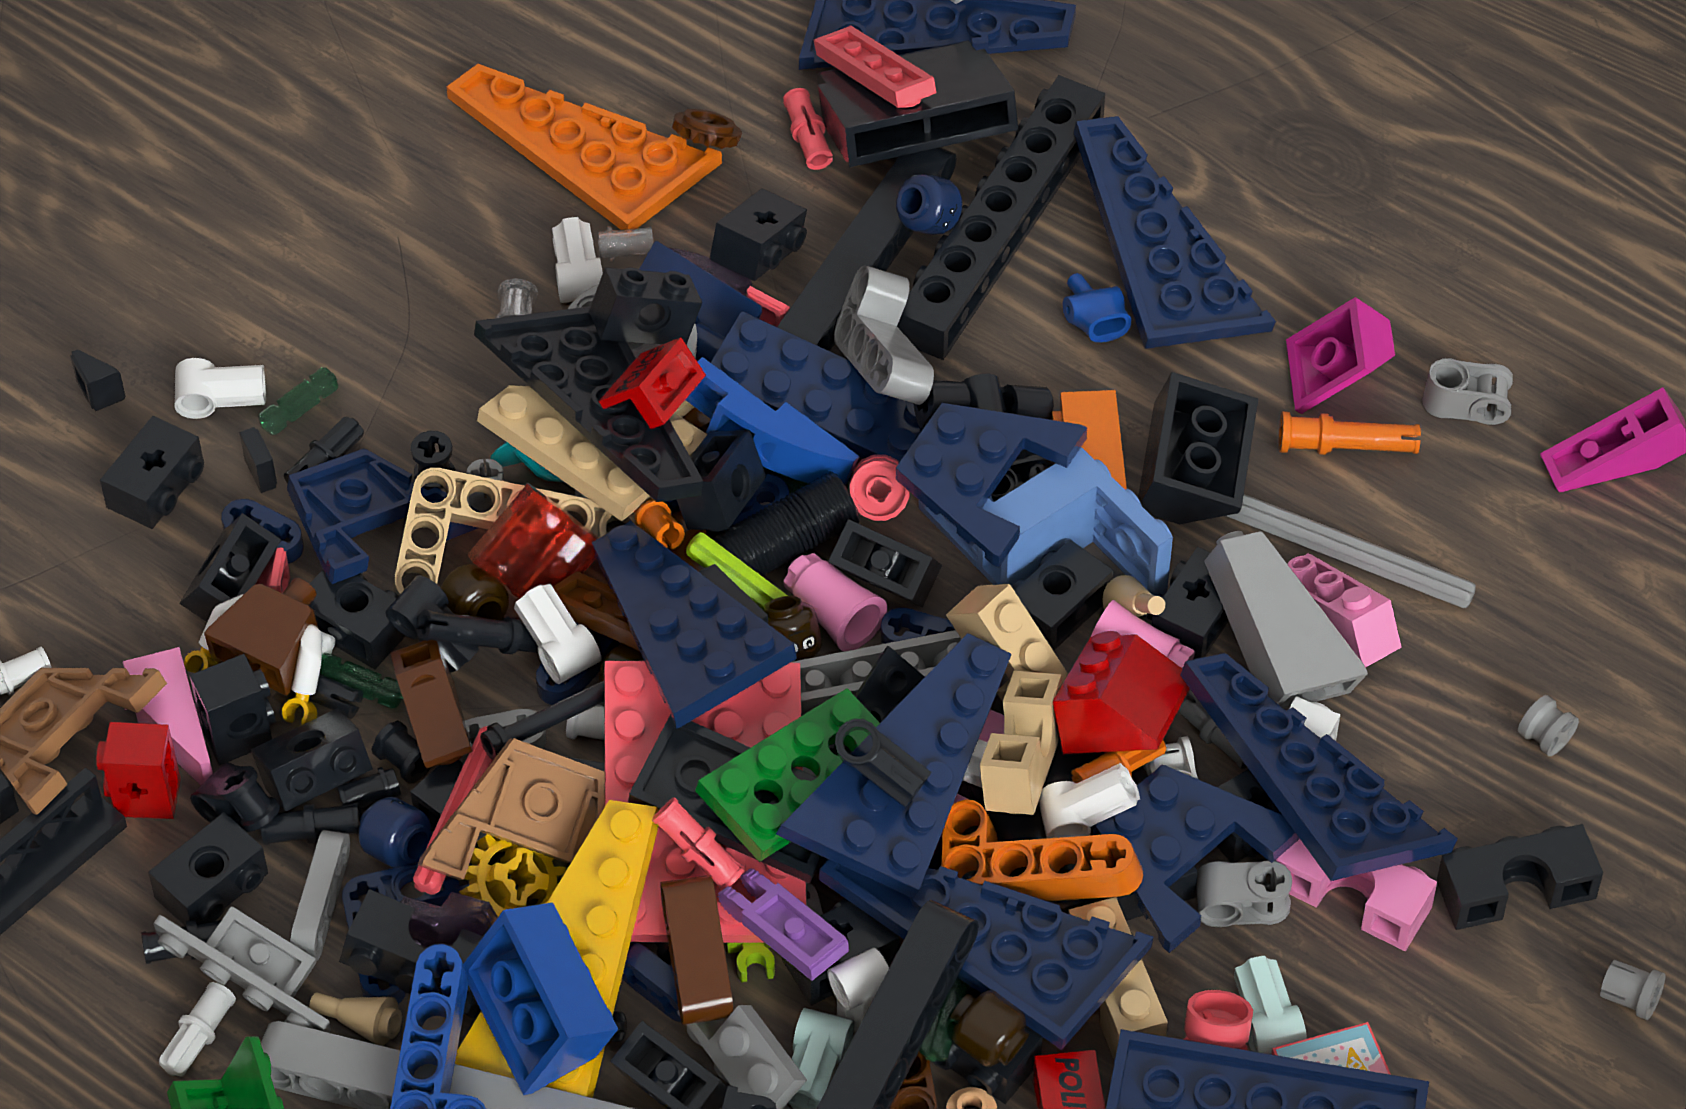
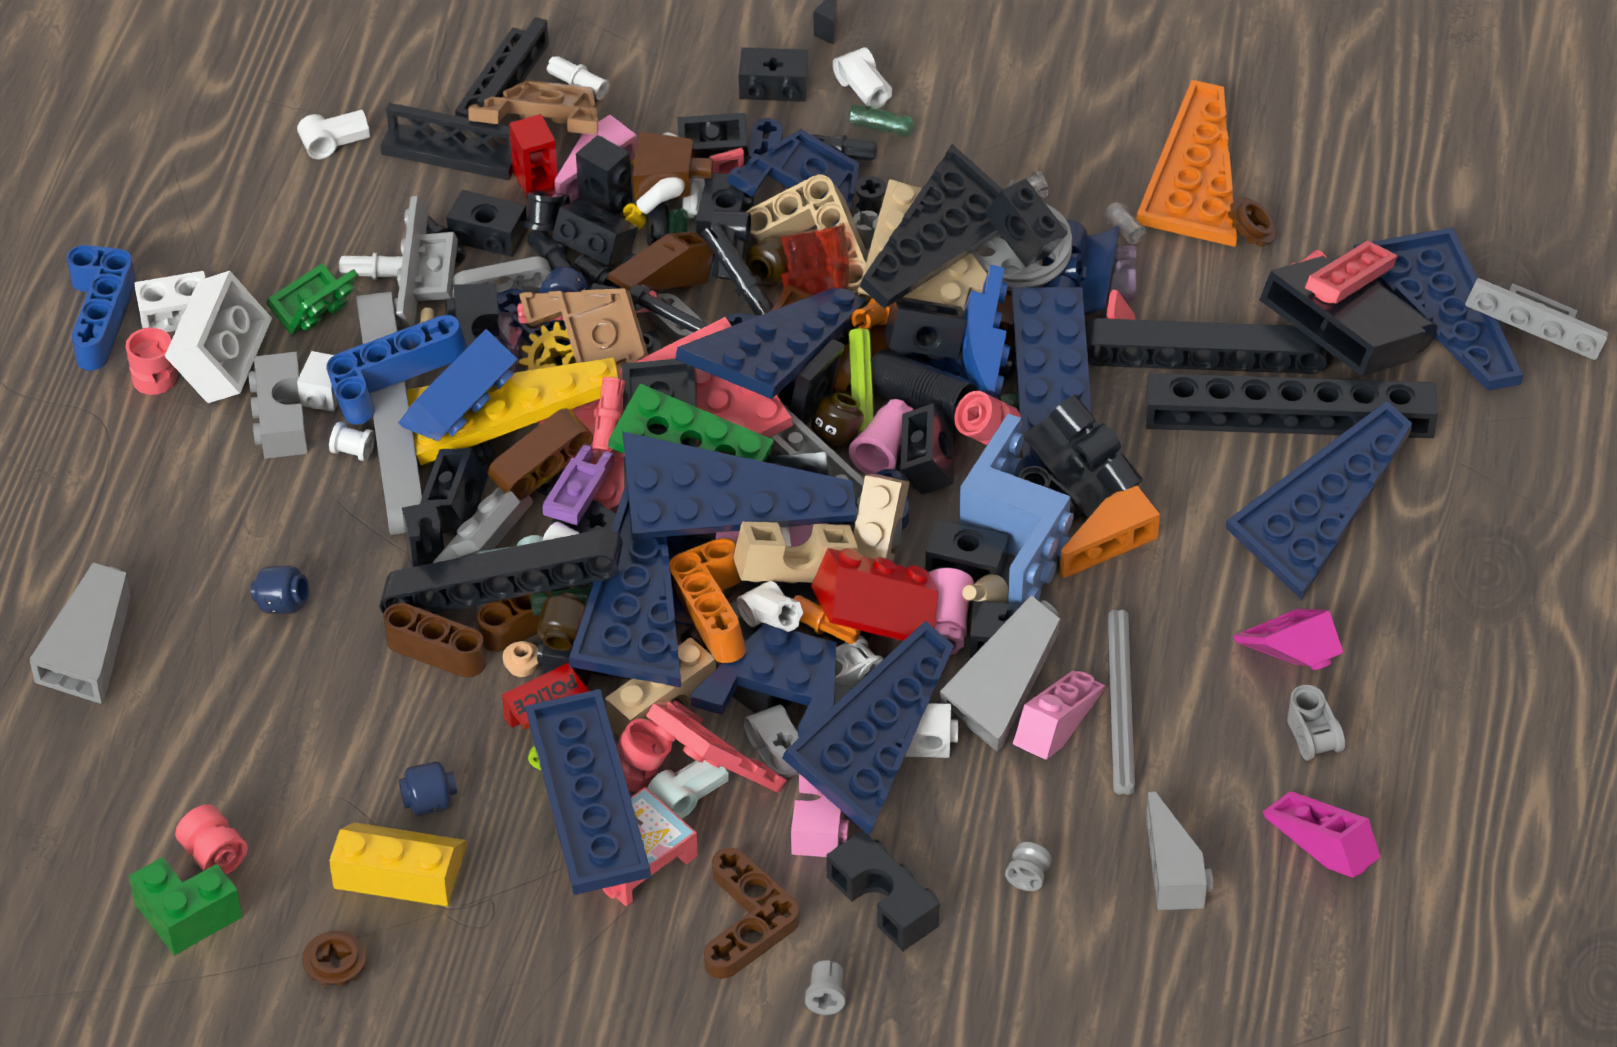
camera: 65 degrees right, 5 degrees down
(258, 459) = (816, 115): black tile -> none
(562, 644) = (758, 297): white piece -> none
(576, 260) = (1089, 202): white piece -> none
(657, 382) = (956, 249): red panel -> none
(758, 234) = (1170, 280): black brick -> none
(875, 344) = (1108, 368): light grey beam -> none
(885, 764) = (700, 450): black piece -> none
(929, 204) = (1249, 349): dark blue head -> none
(966, 456) = (1010, 435): dark blue wing -> none
(1096, 311) = (1240, 487): blue piece -> none
(1197, 451) = (1138, 576): black slope -> none
(1233, 965) = (681, 724): none -> coral wing
(1325, 433) = (1216, 656): orange pin -> none
(1481, 1010) = (760, 915): none -> reddish brown beam
(1598, 590) = (1175, 860): none -> light grey slope

